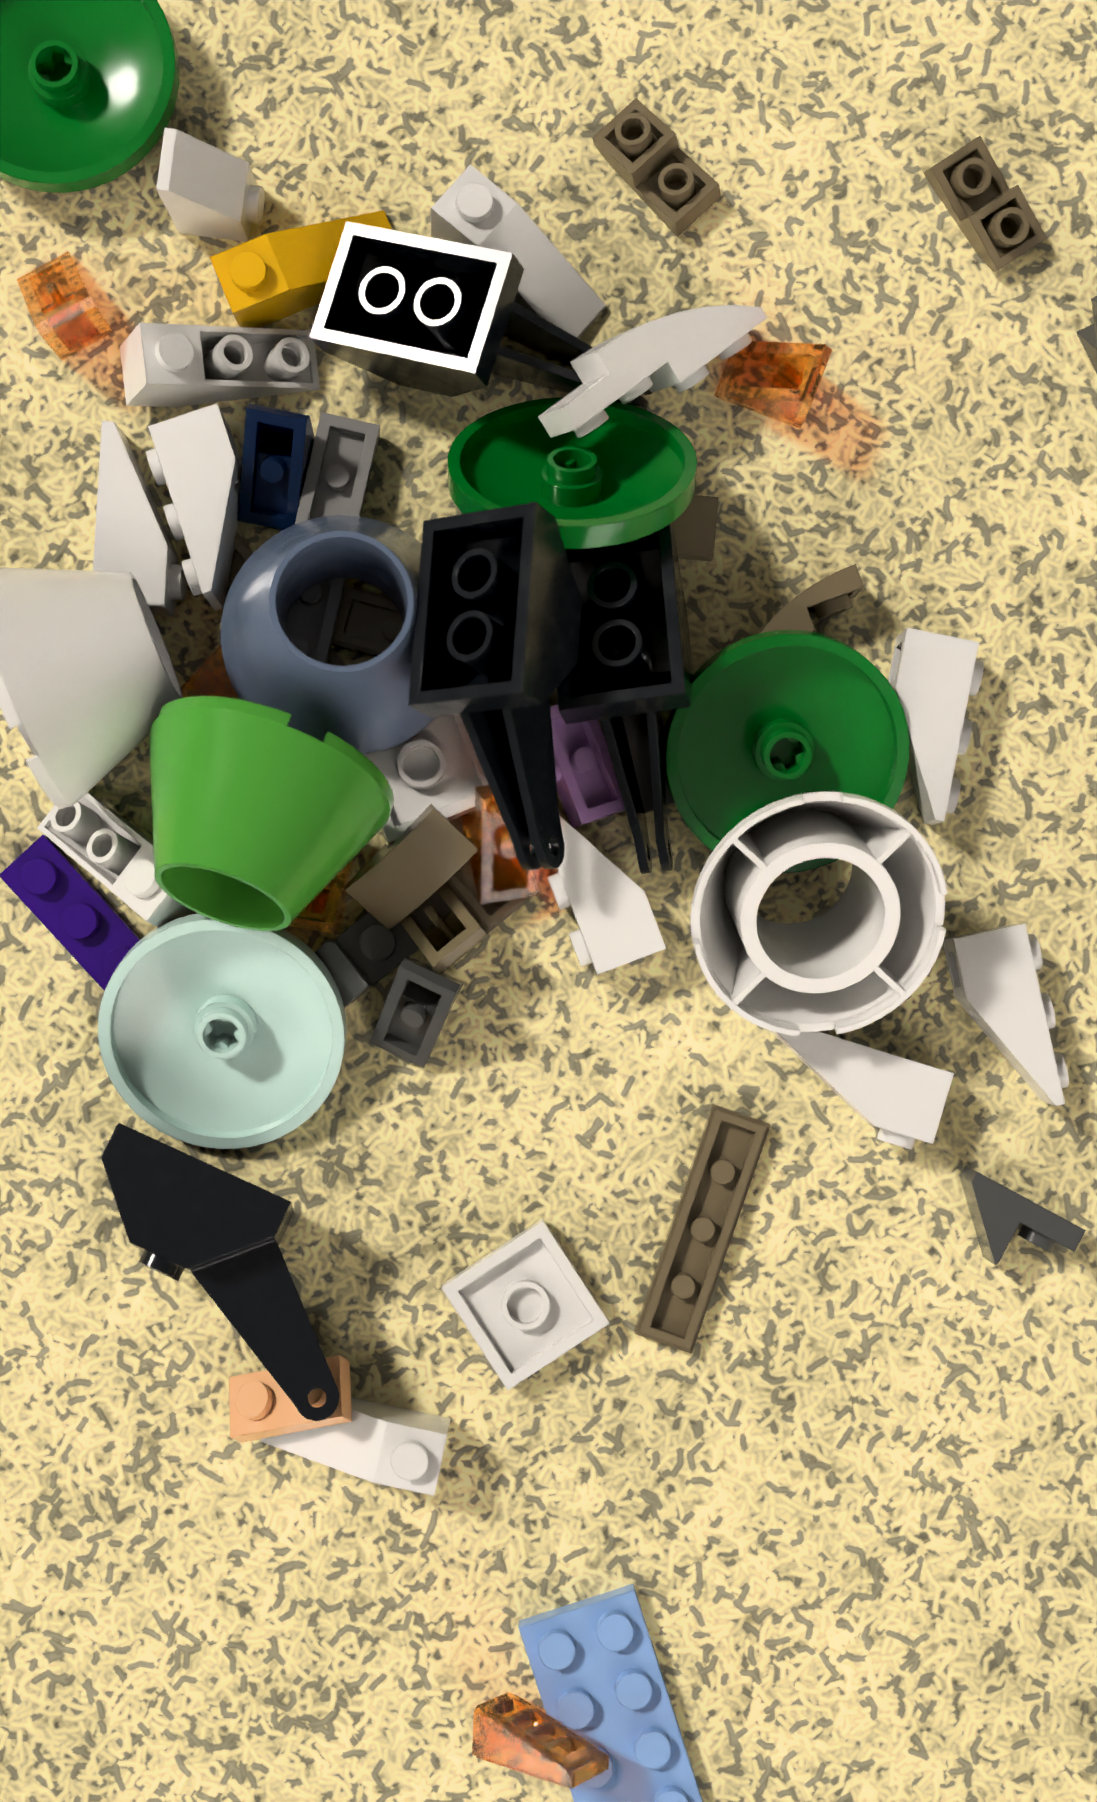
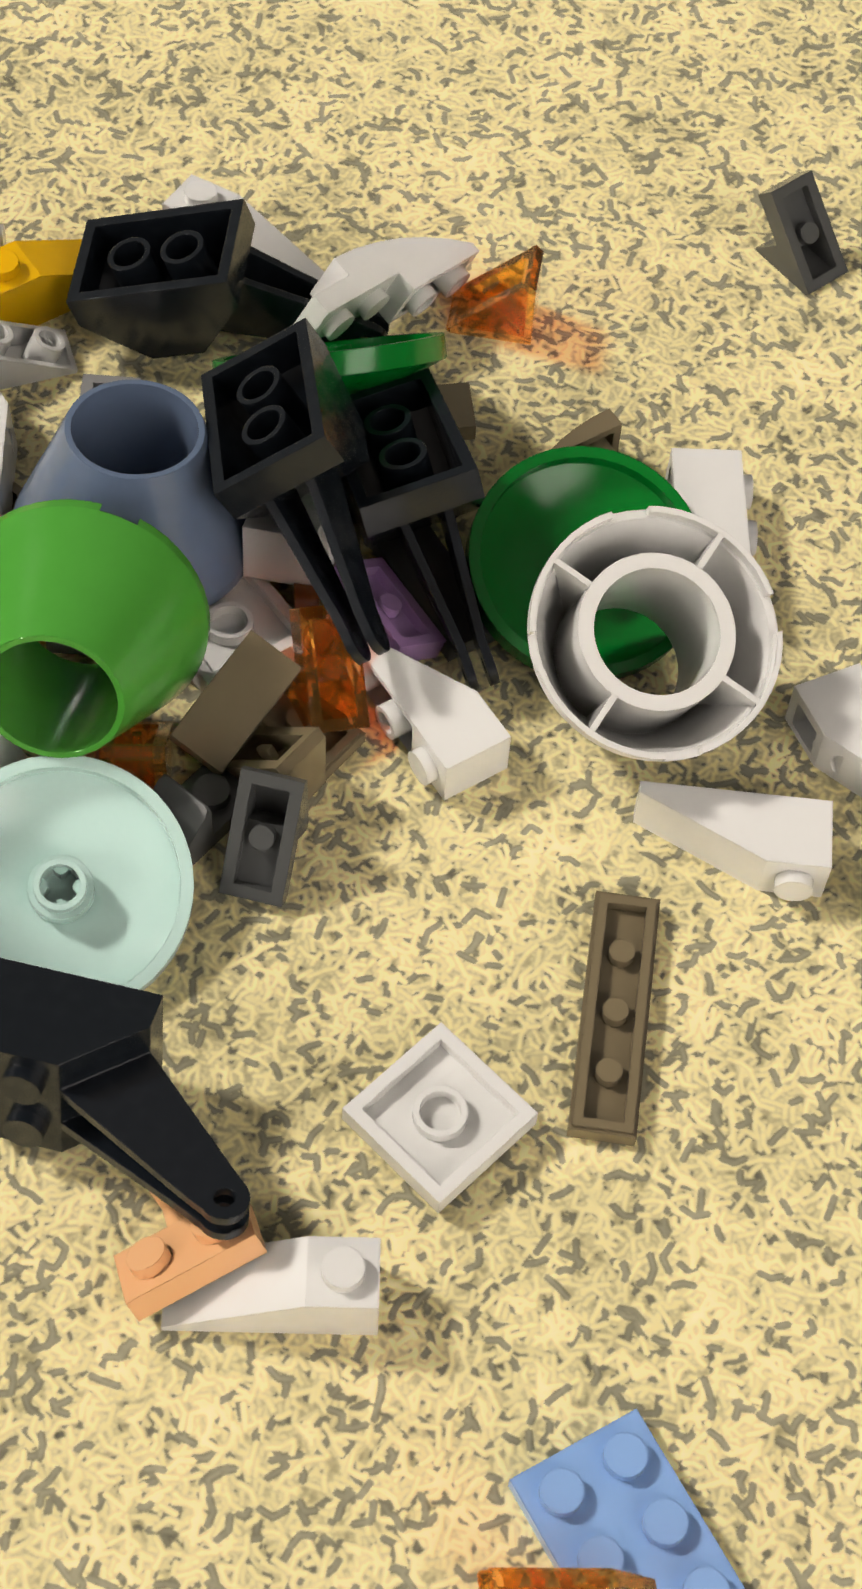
camera: 15 degrees left, 30 degrees down
(273, 465) = (43, 395): dark blue slope -> none
(655, 167) = (347, 177): dark tan slope -> none
(983, 206) = (654, 178): dark tan slope -> none

